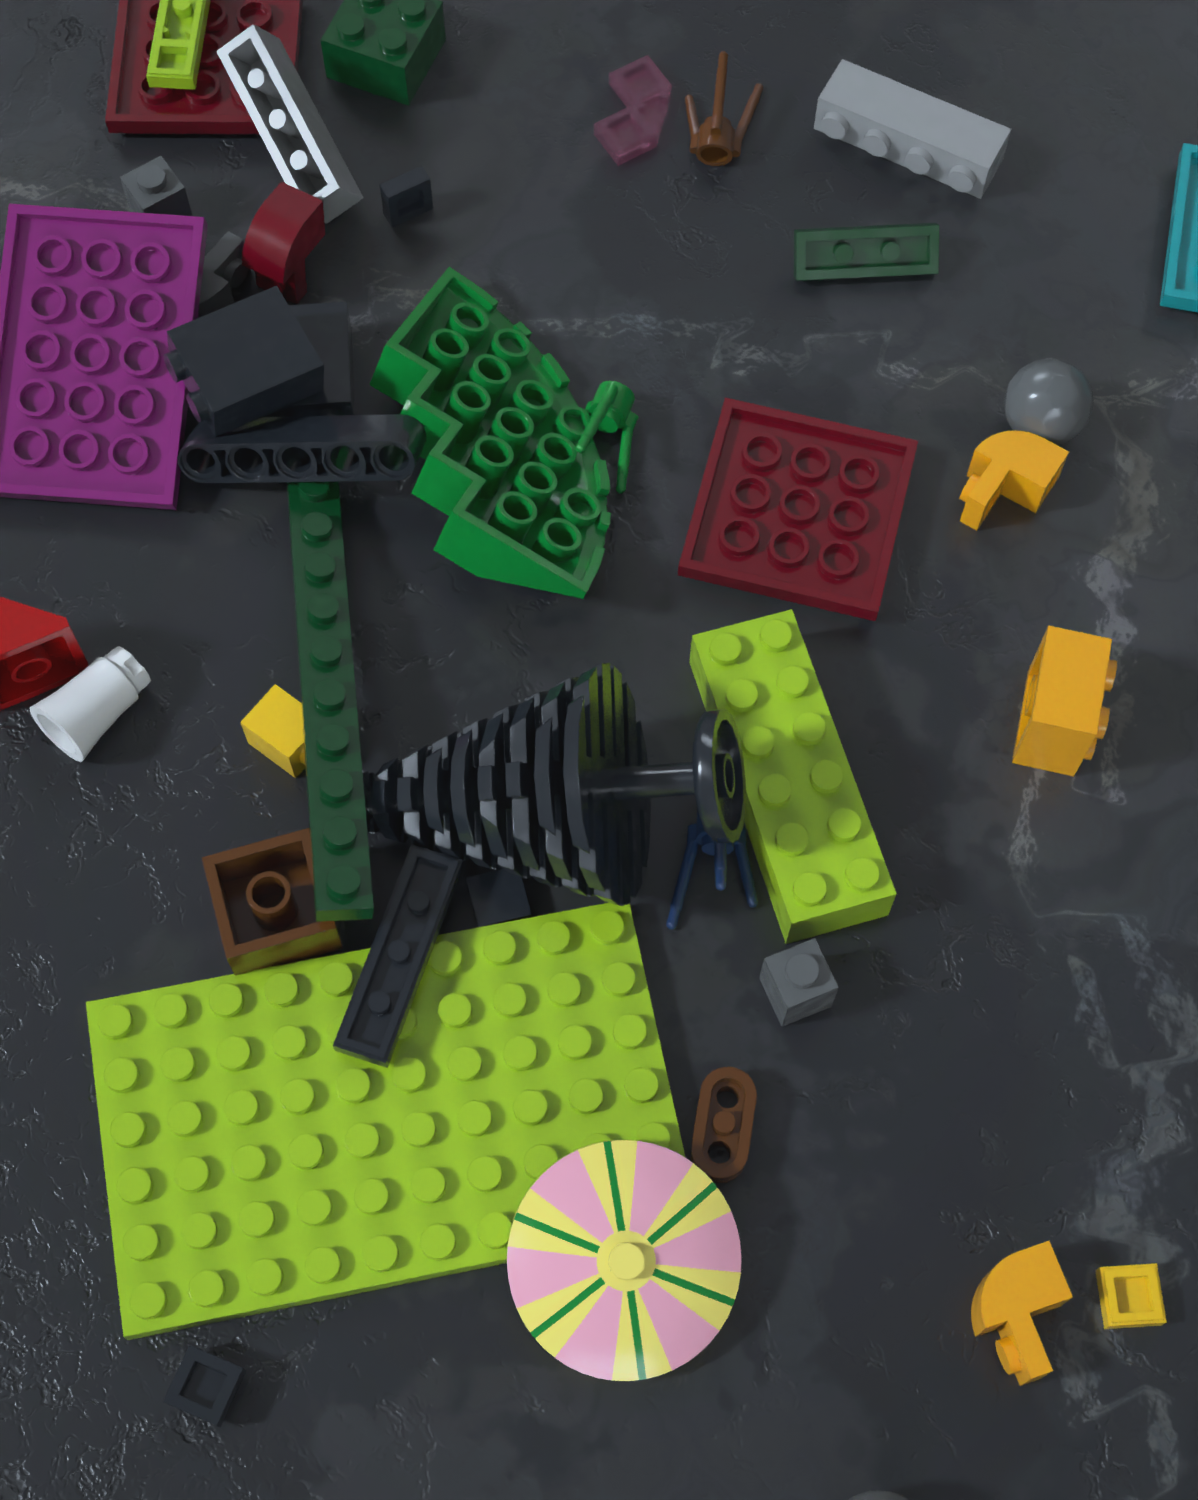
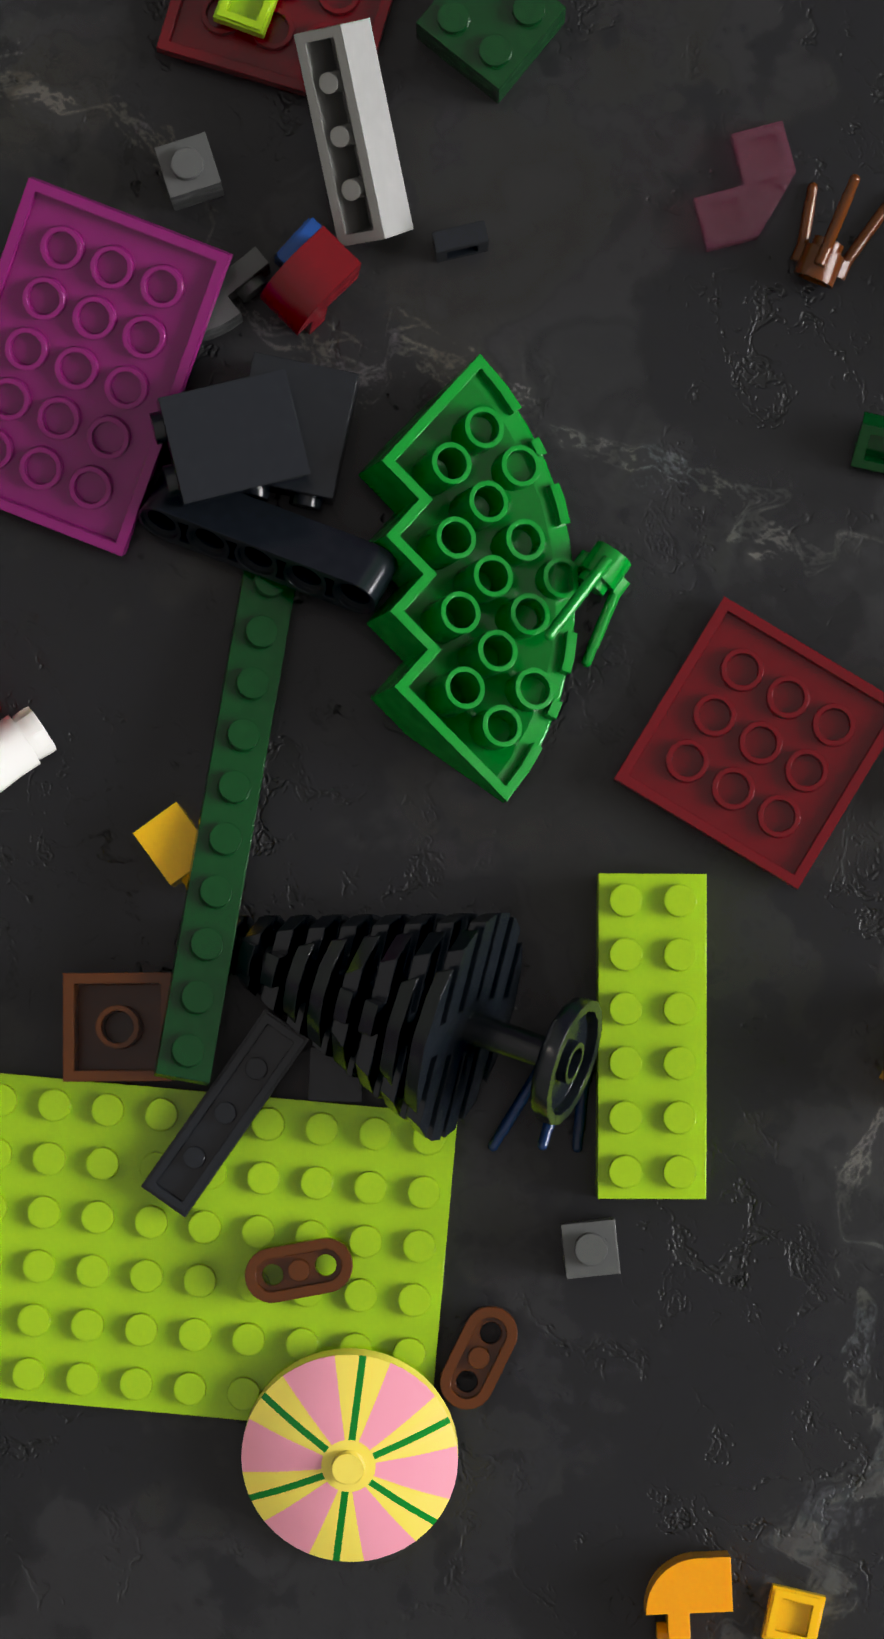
camera: 20 degrees right, 20 degrees up
(513, 1078) = (299, 1270): none -> reddish brown plate

